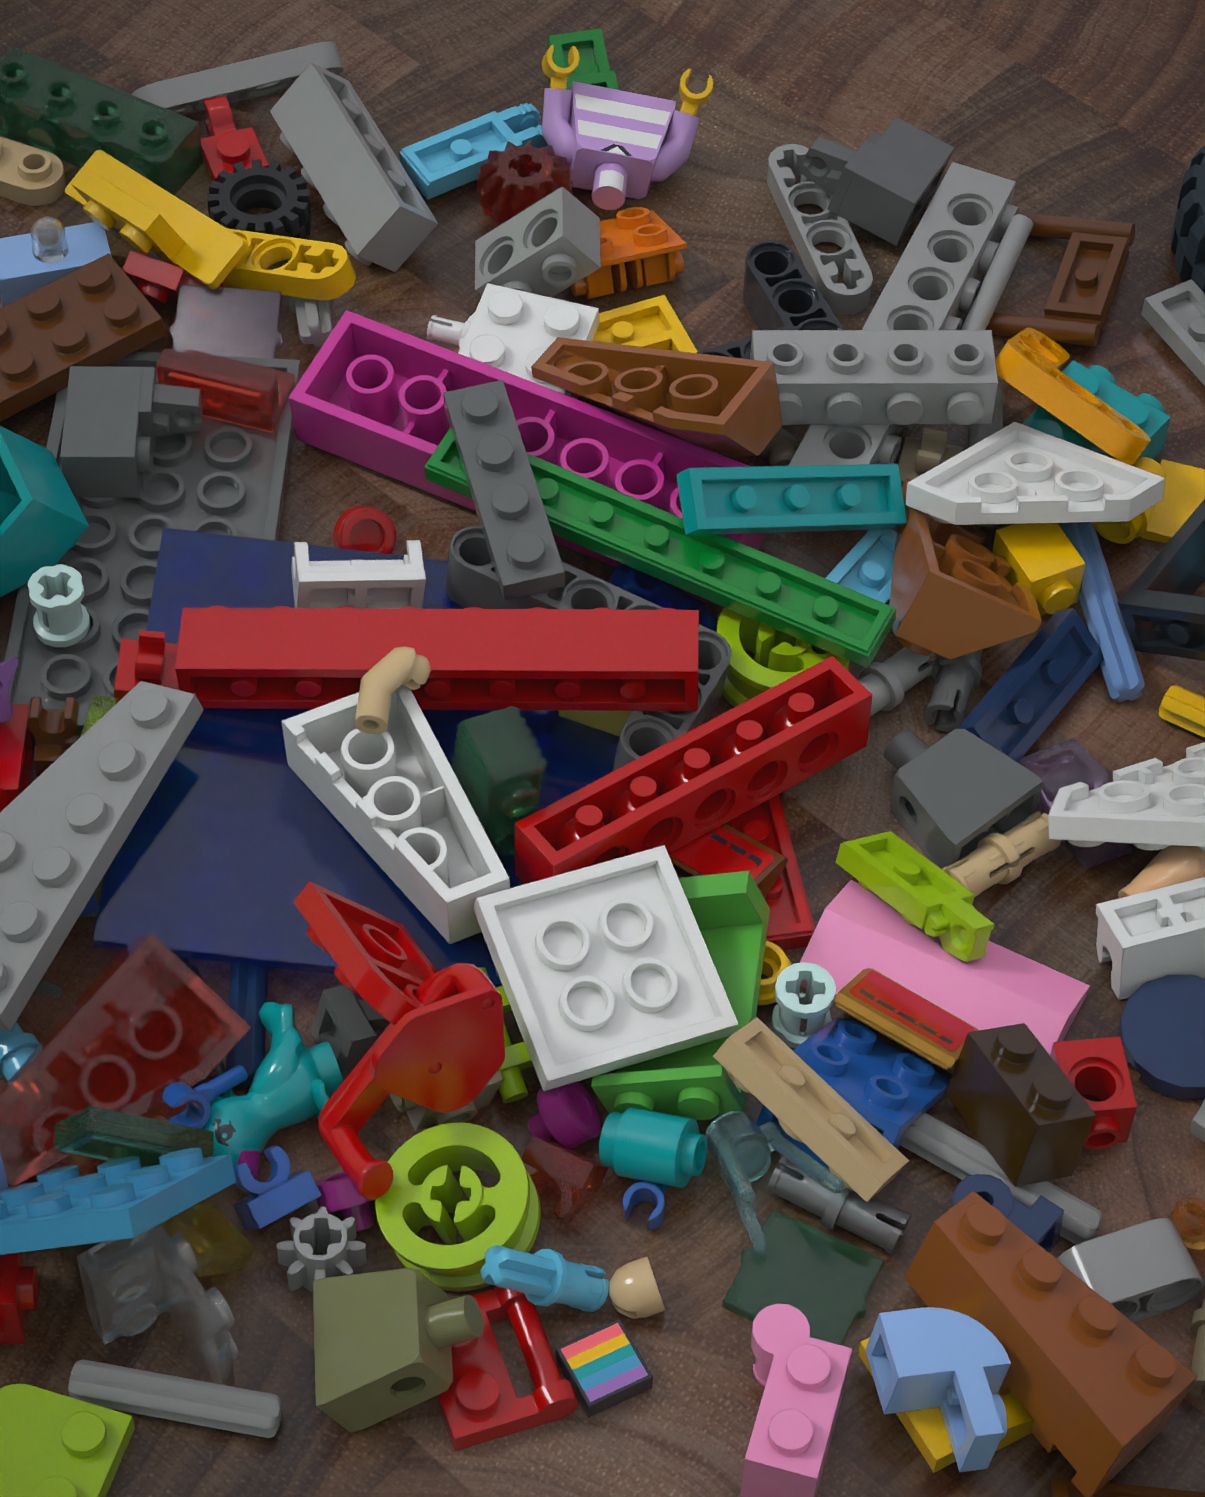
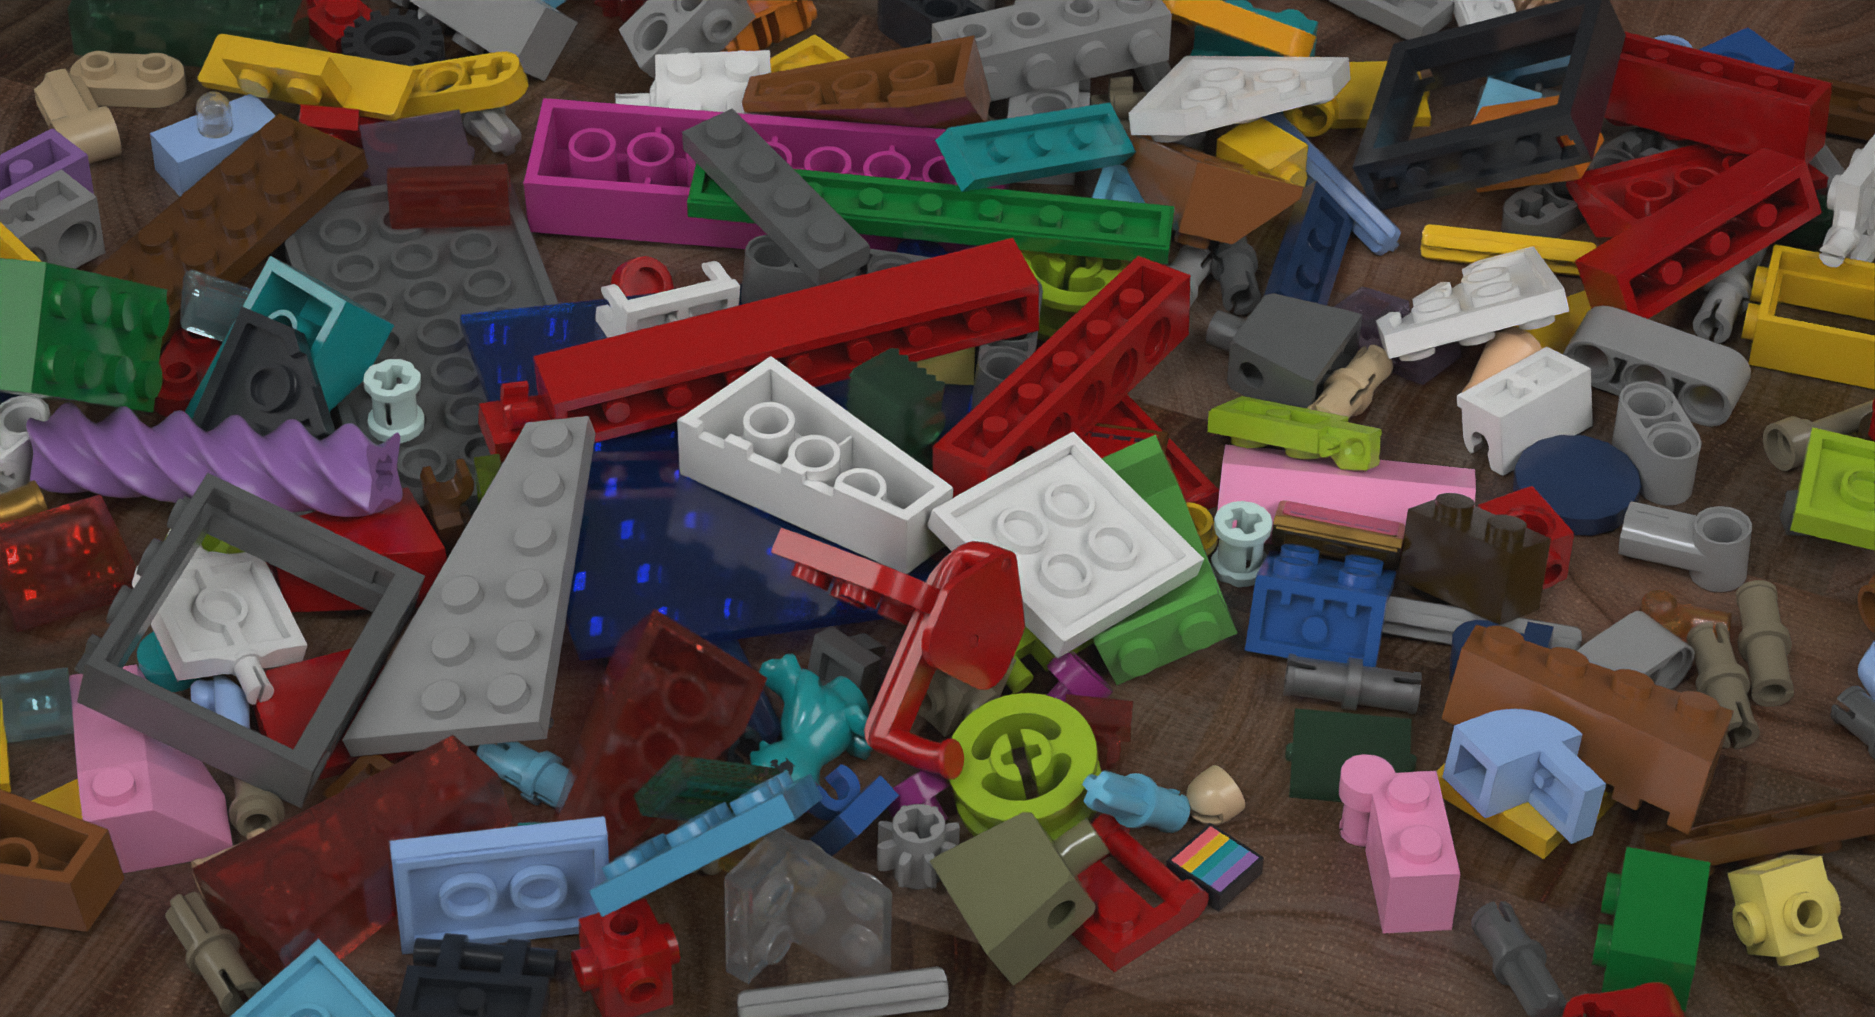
camera: 20 degrees left, 10 degrees down
(115, 427) = (368, 241): dark grey hinge -> none
(198, 1098) = (749, 748): blue hand -> none
(382, 680) = (758, 362): tan arm -> none
(650, 1193) = (1184, 721): blue hand -> none
(653, 1147) = (1173, 679): teal brick -> none
(744, 1156) = (1256, 665): clear light blue plant -> none
(810, 1109) = (1303, 605): tan plate -> none

